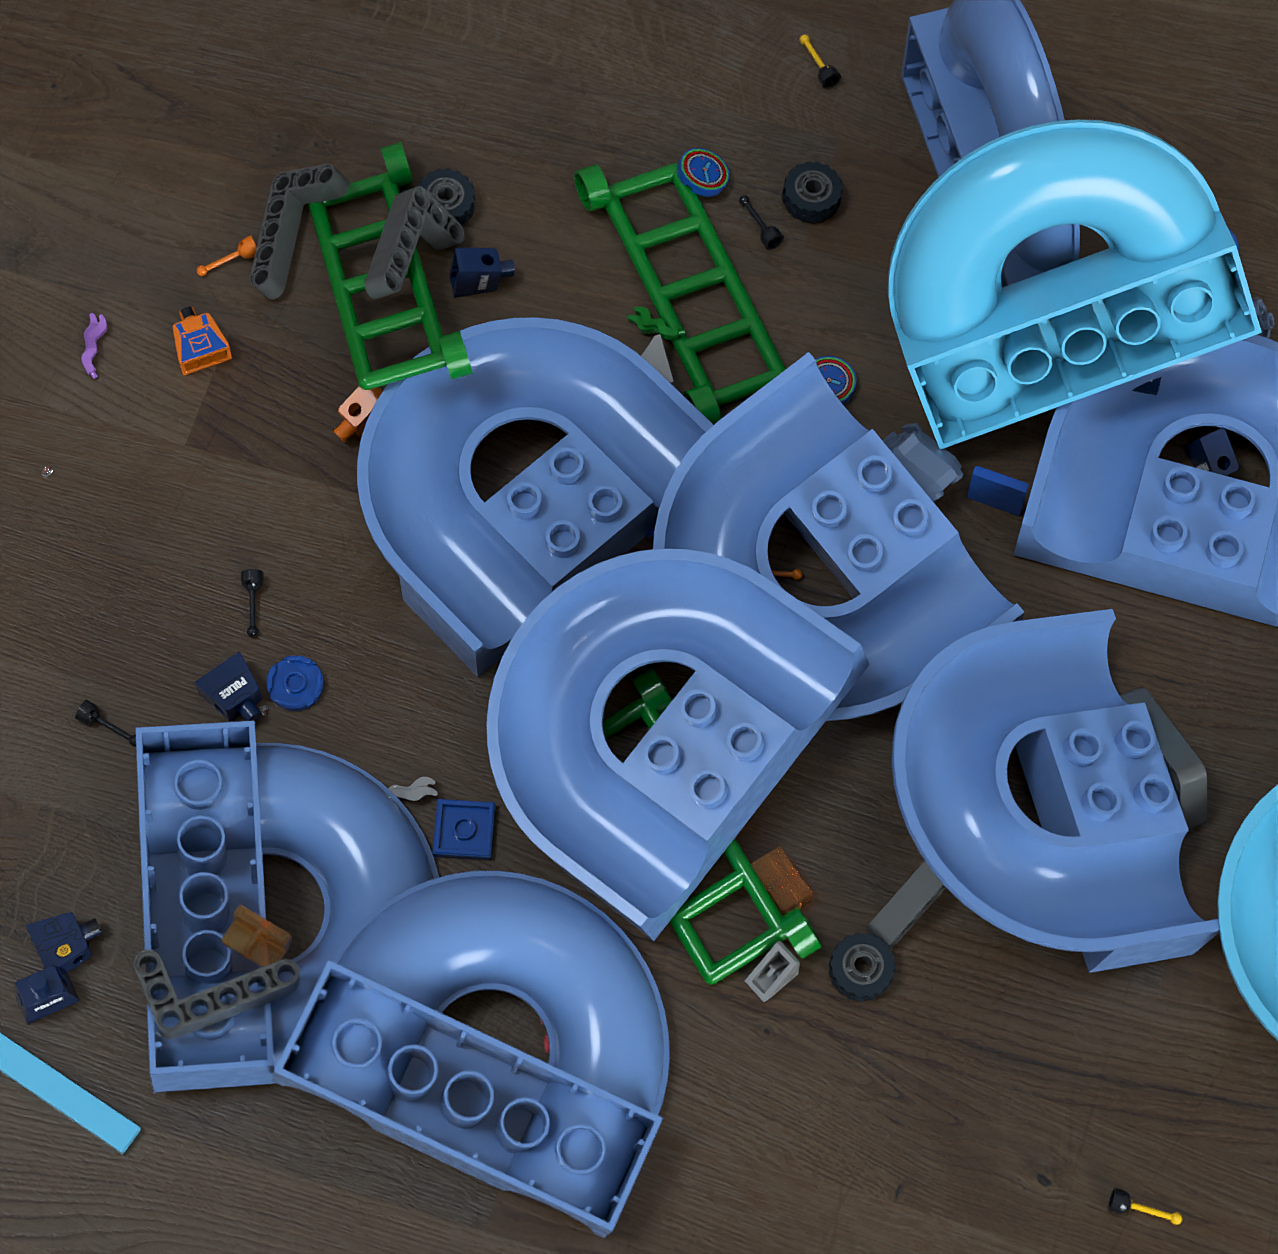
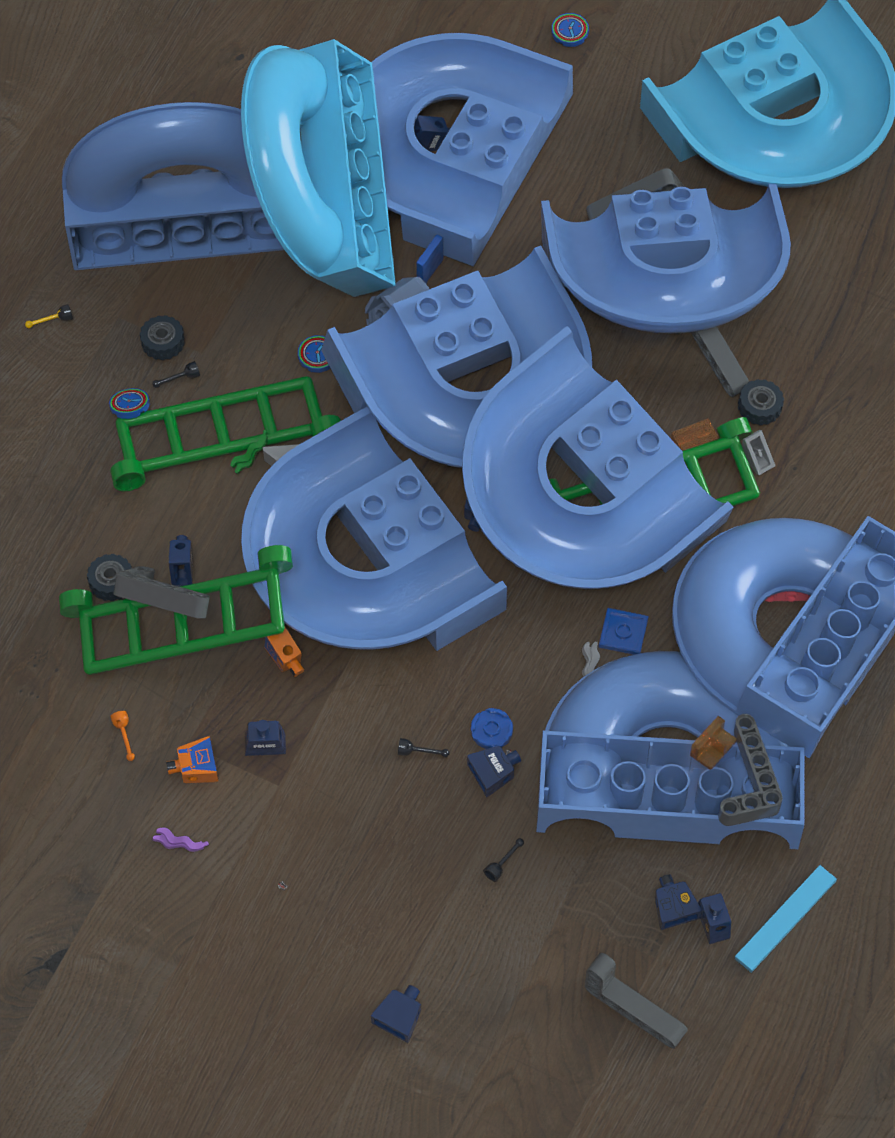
camera: 80 degrees left, 5 degrees down
(237, 407) = (264, 738): none -> dark blue torso
(282, 219) = (107, 687): dark grey beam -> none

